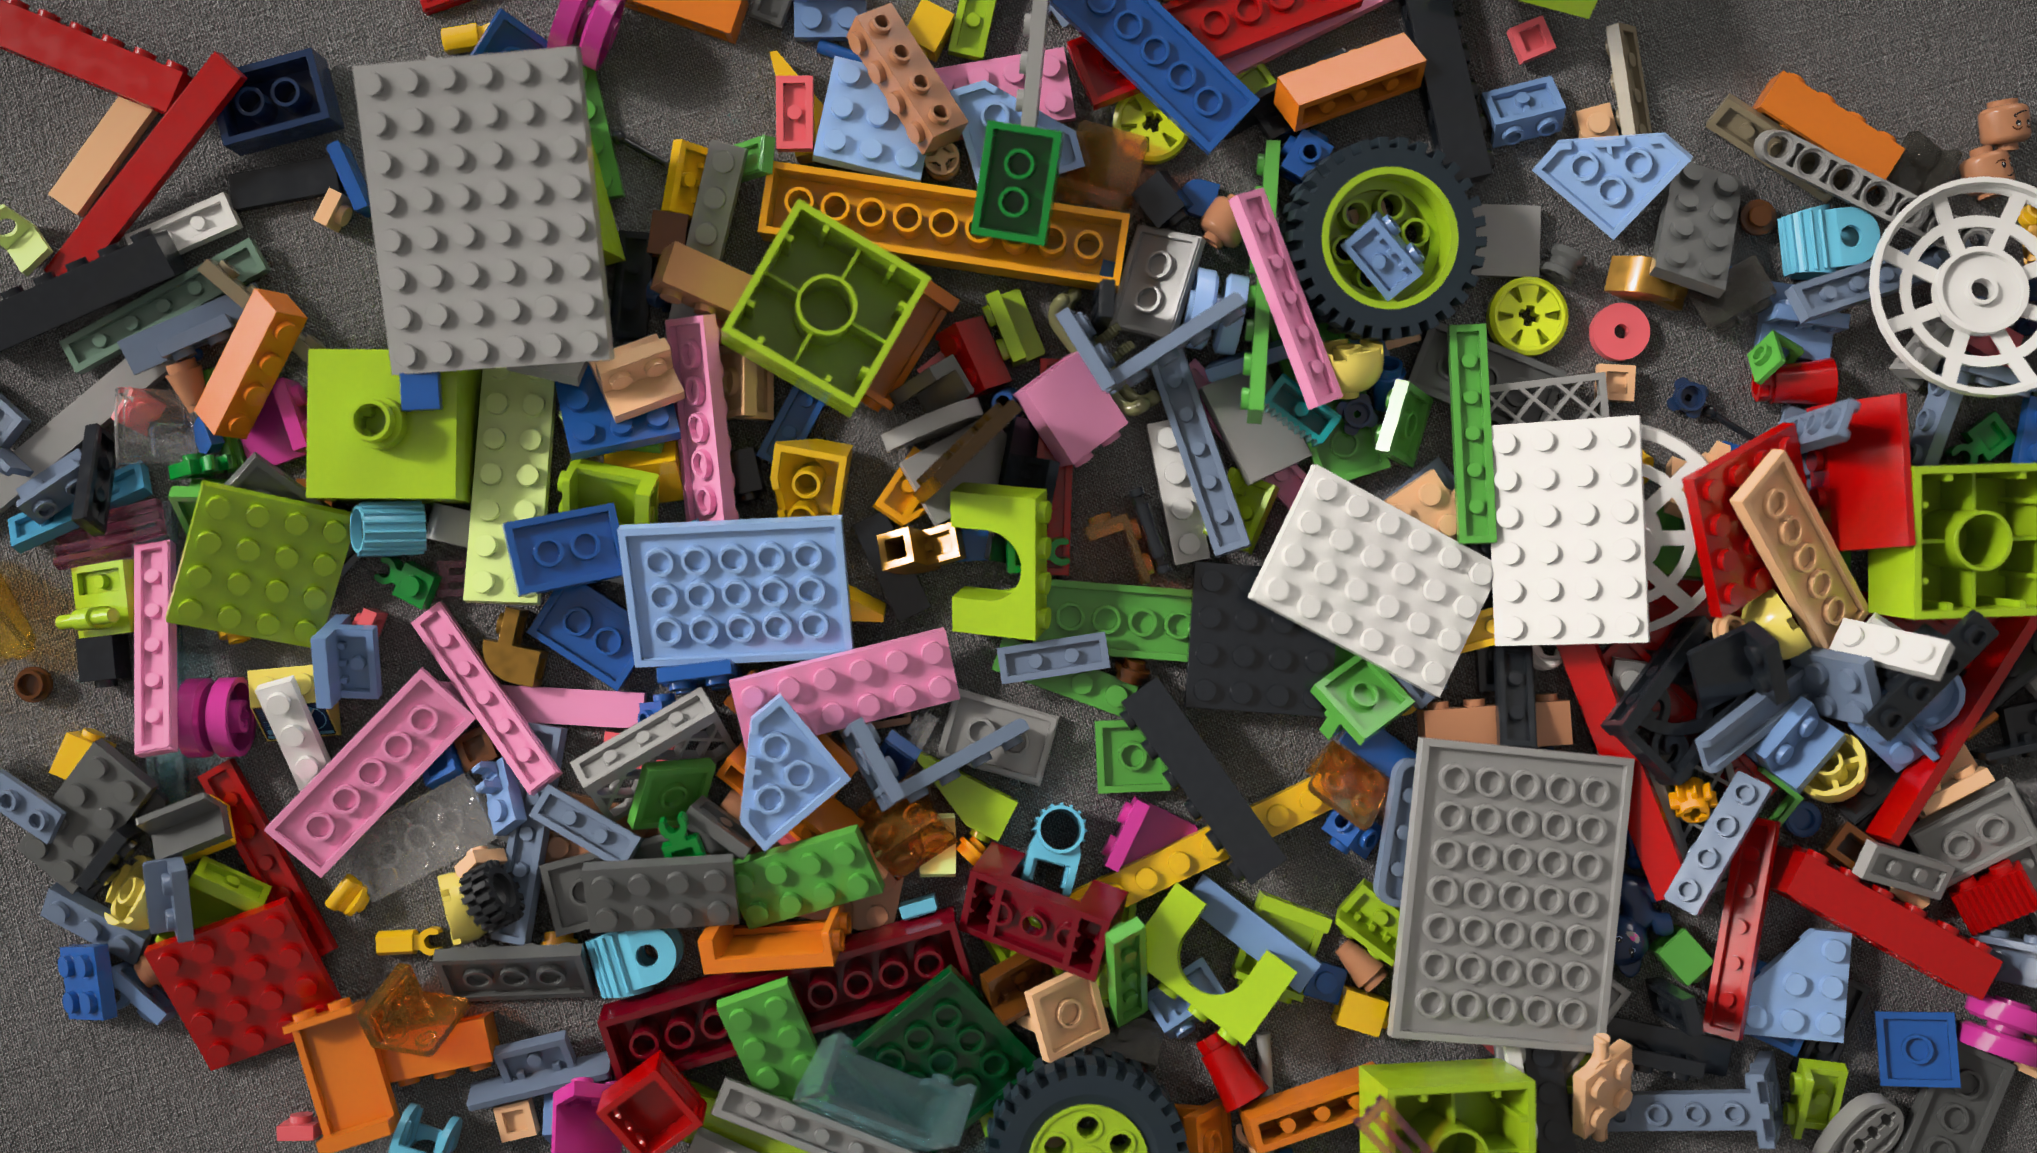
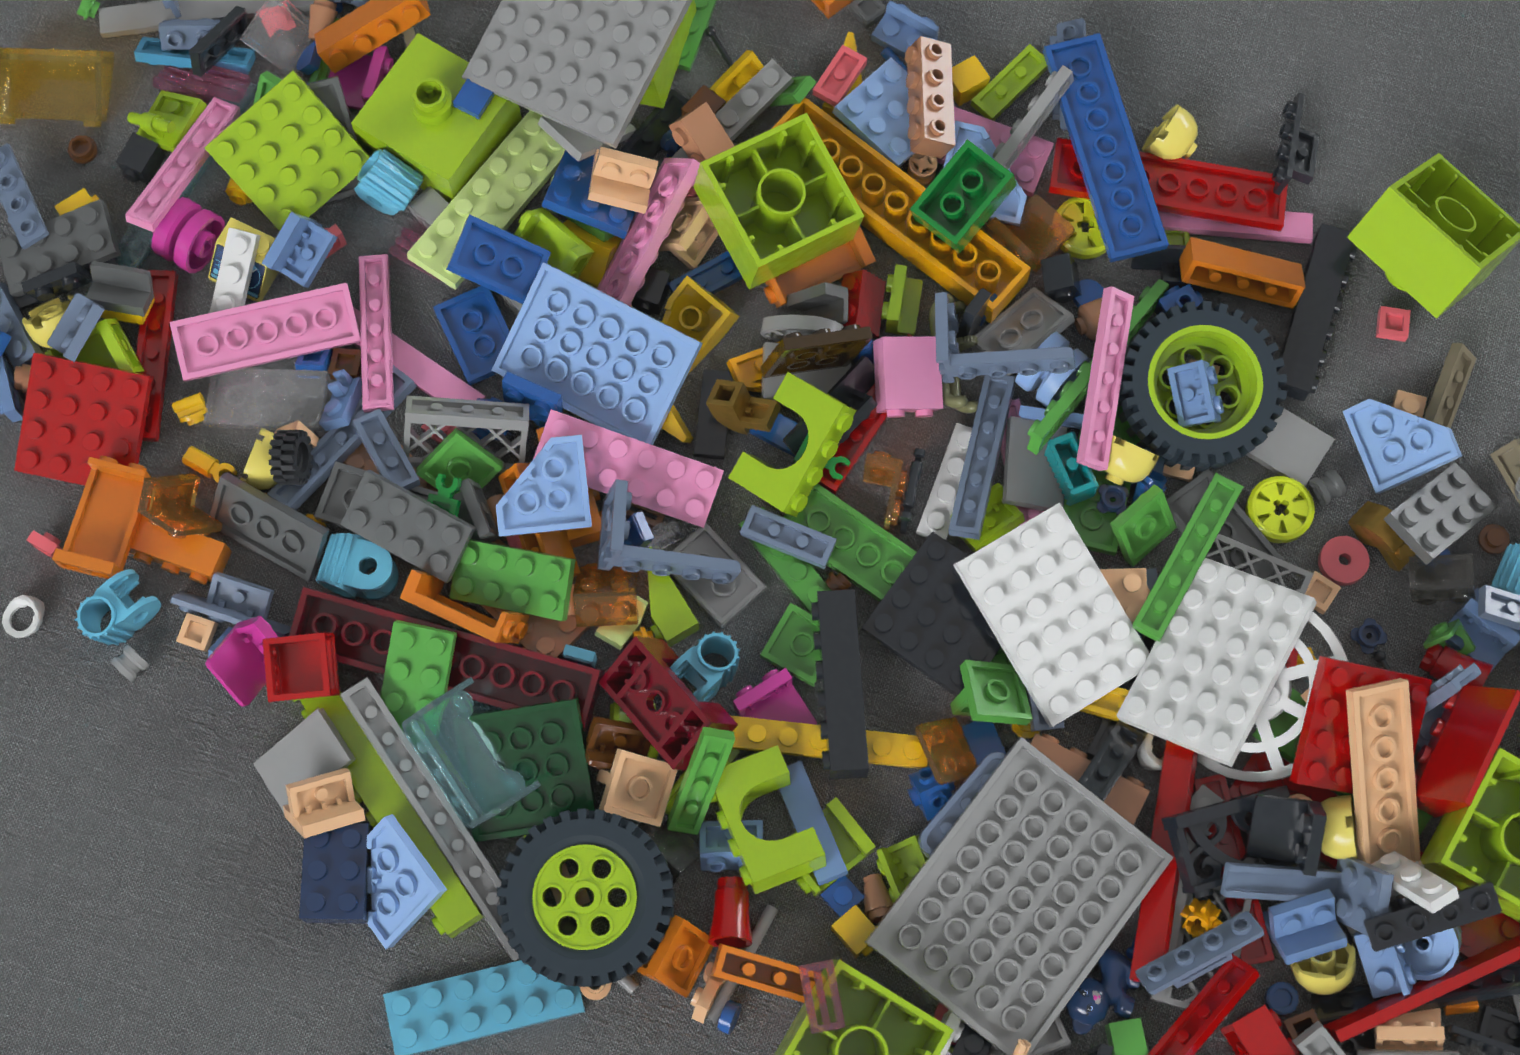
camera: 35 degrees right, 15 degrees down
(199, 466) = (282, 69): green plate -> none
(412, 581) = (377, 229): green plate -> none
(508, 657) = (411, 315): pearl gold brick -> none
(1524, 111) = (1359, 368): medium blue bracket -> none
(1788, 804) = (1283, 970): bright green bracket -> none

